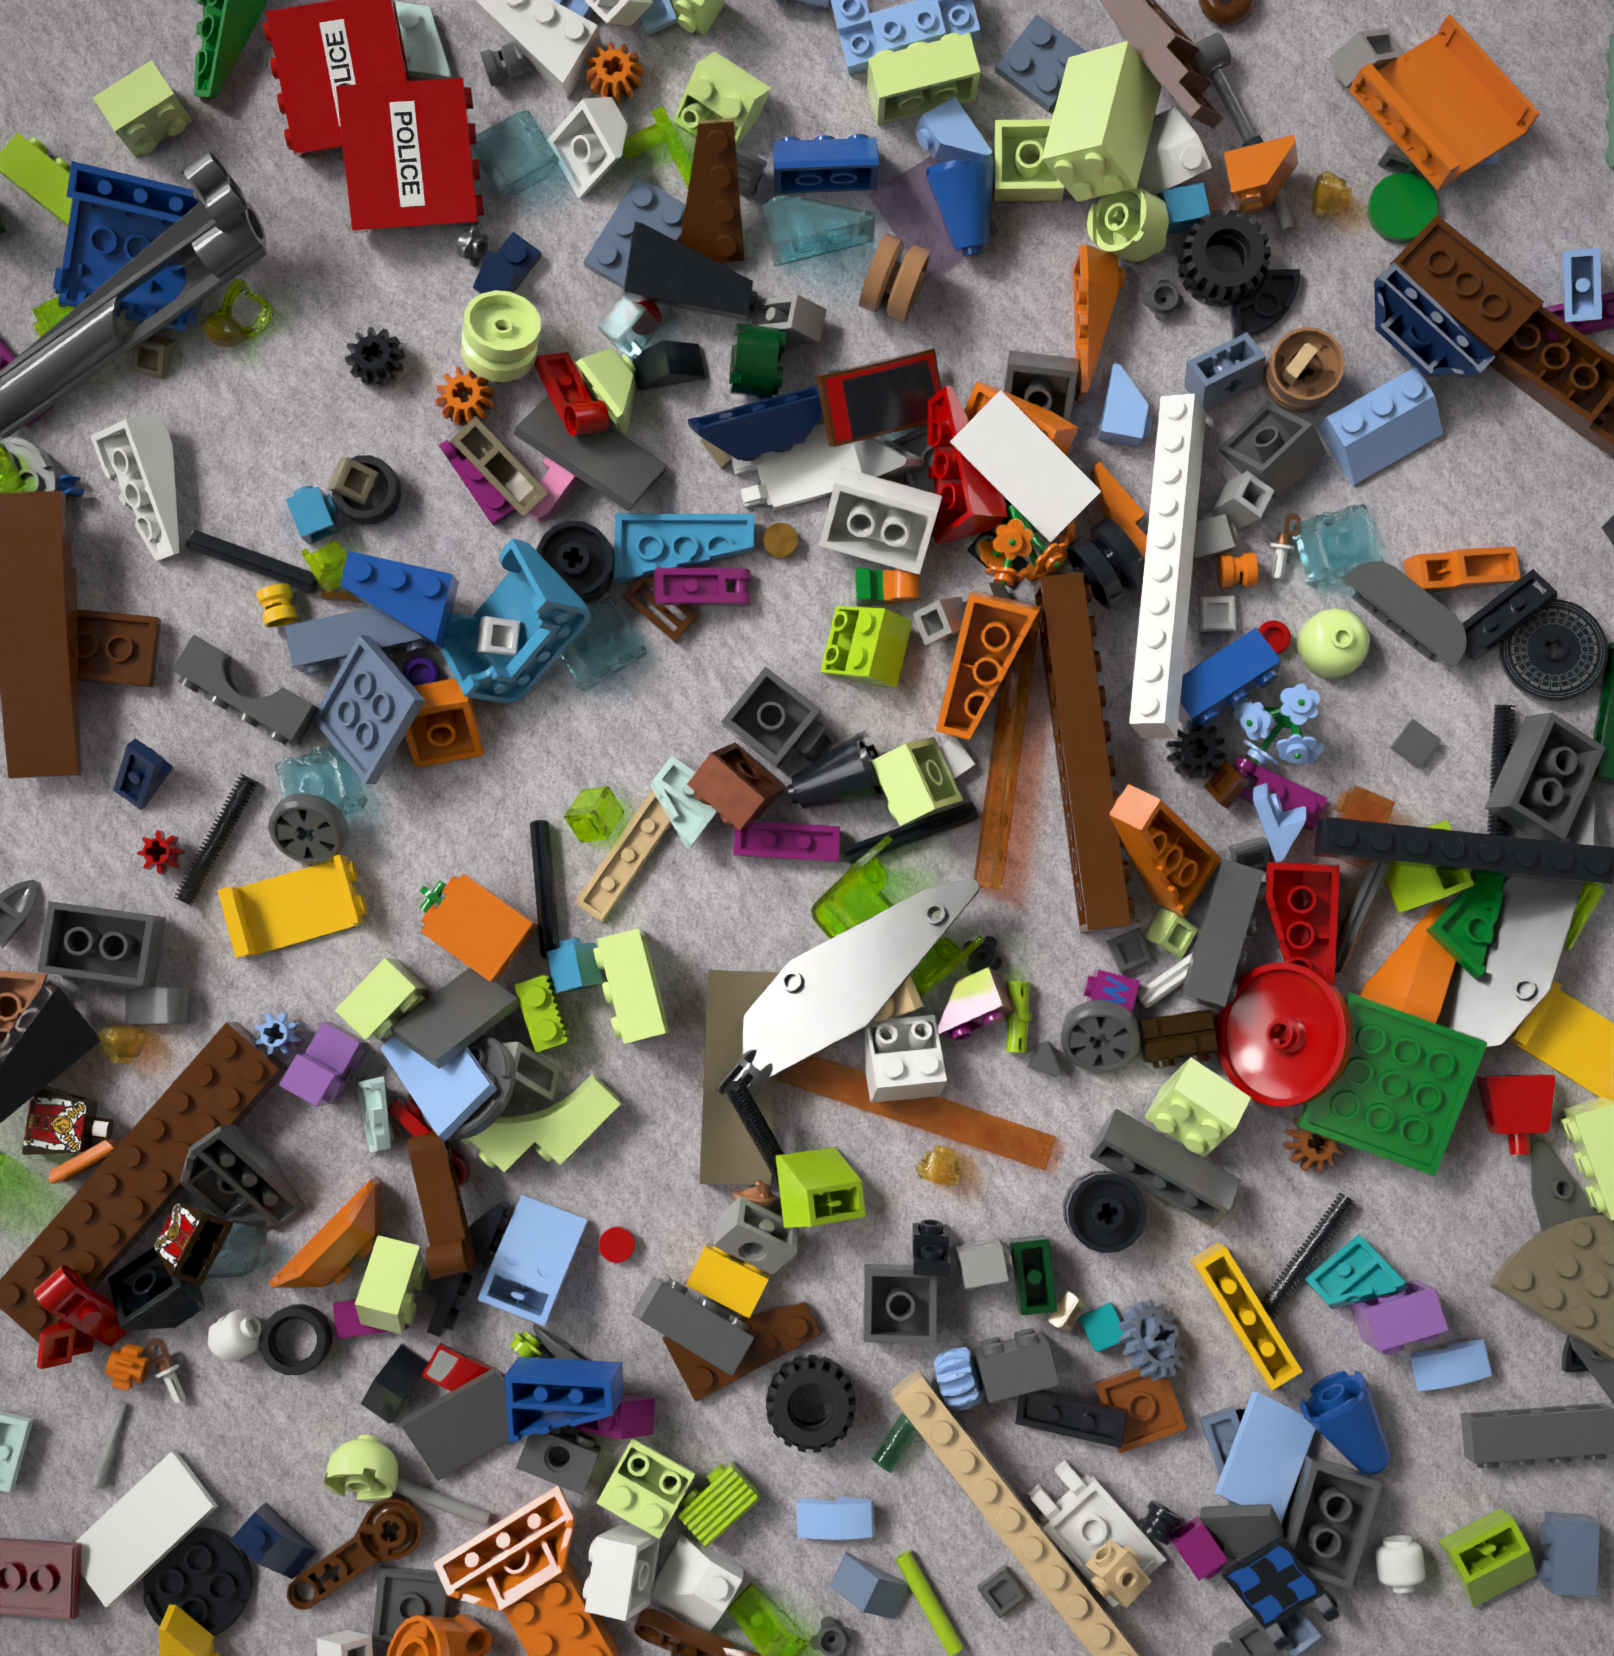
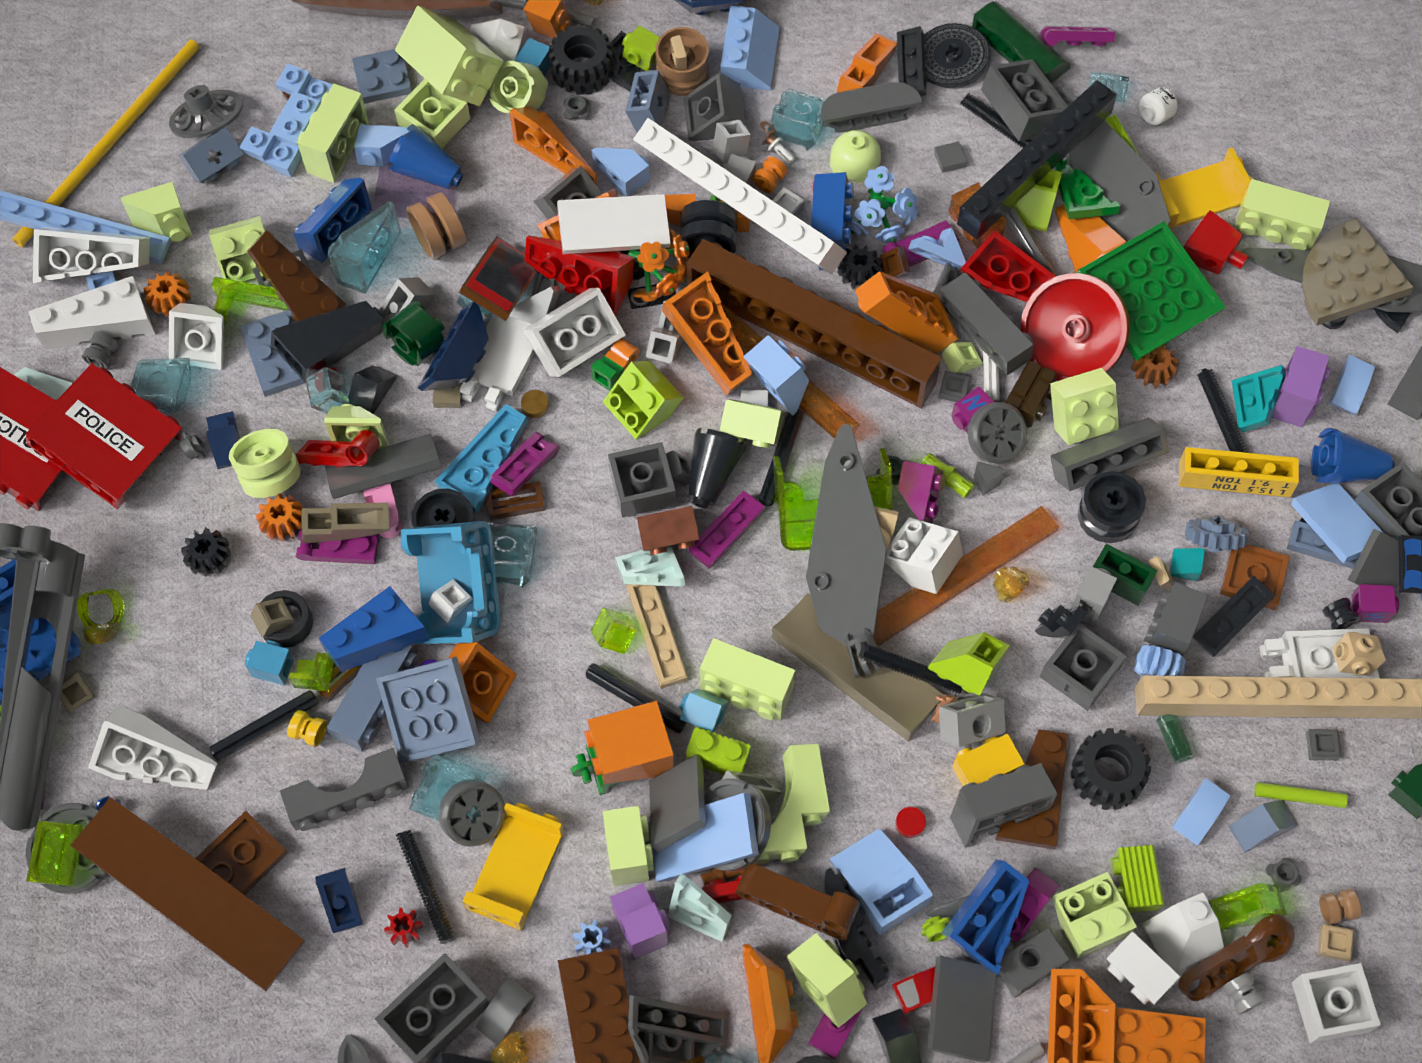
camera: 55 degrees left, 20 degrees down
(987, 766) = (779, 372): none -> light blue slope
(1287, 310) = (640, 47): none -> lime brick

